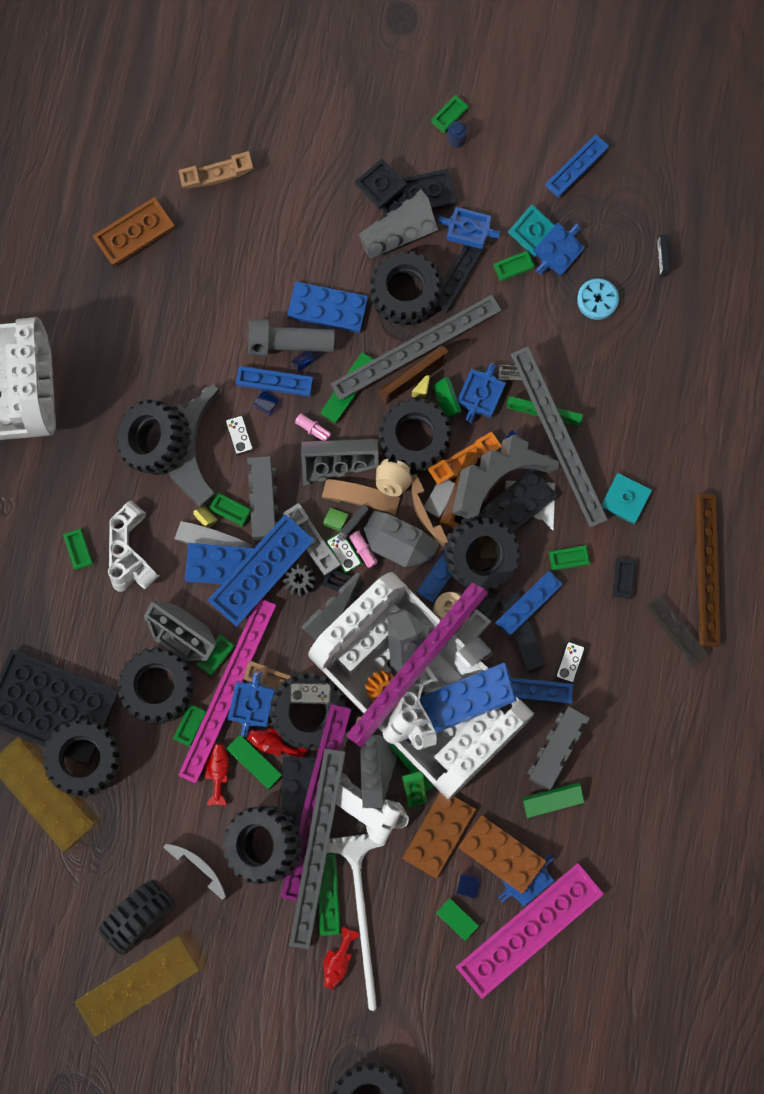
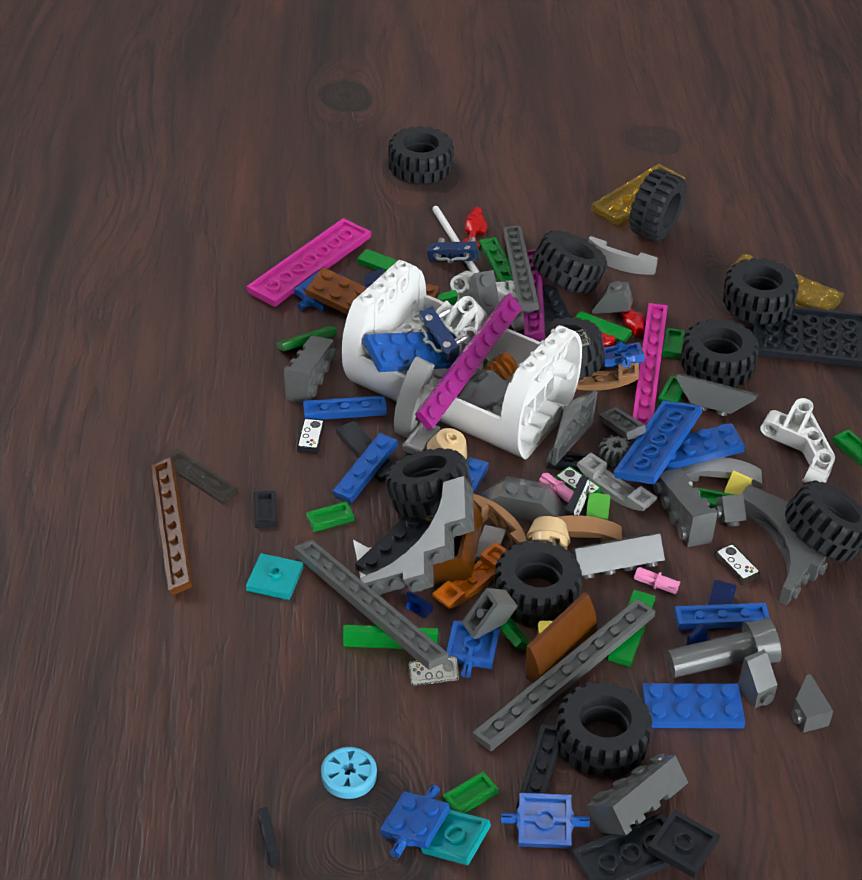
camera: 165 degrees right, 35 degrees down
(225, 485) = (731, 509): none -> dark grey brick
(232, 790) = (614, 298): none -> dark grey slope
(242, 283) = (811, 707): none -> dark grey slope
(274, 307) = (757, 679): none -> dark grey slope
(283, 607) = (622, 423): none -> dark grey plate
(374, 909) = (453, 251): none -> dark blue piece
(438, 707) = (440, 334): none -> dark blue piece
(464, 401) = (489, 612): none -> dark grey slope

